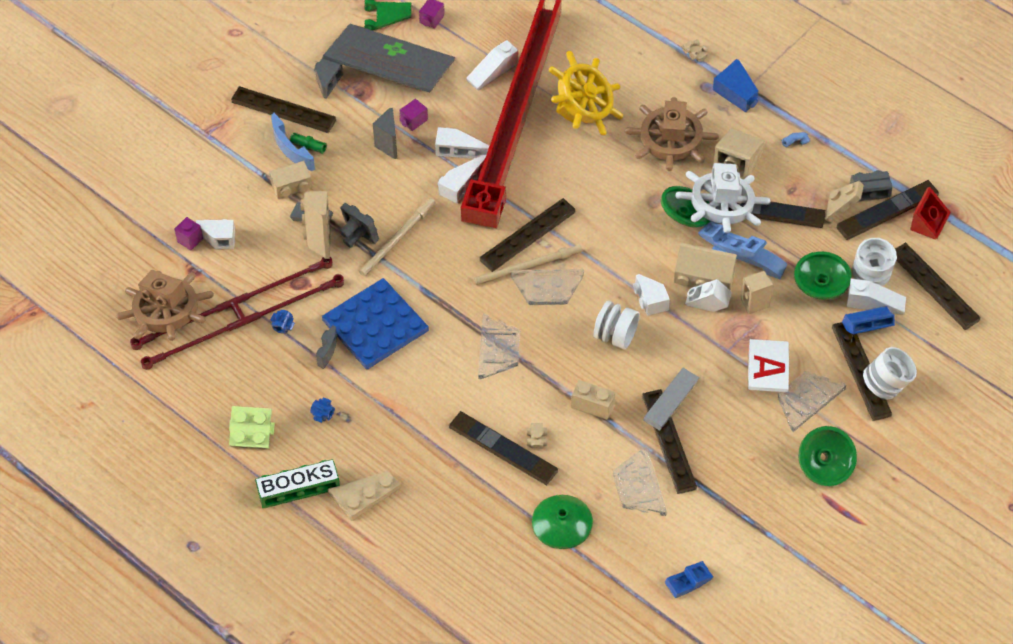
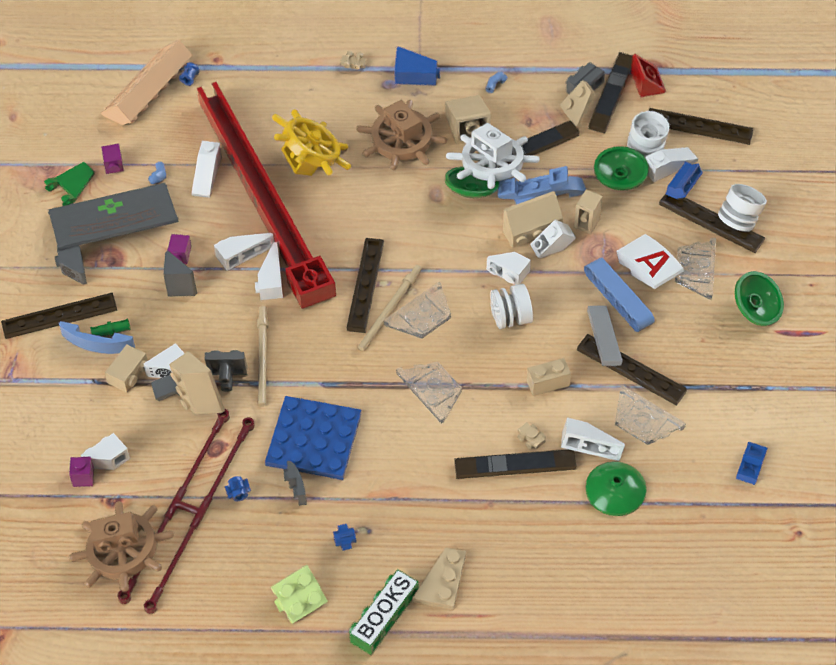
camera: 40 degrees left, 0 degrees up
(332, 191) = (159, 365): none -> white slope
(455, 48) = (159, 175): none -> medium blue arm
(573, 466) = (590, 440): none -> white slope
(718, 375) = (619, 294): none -> medium blue beam

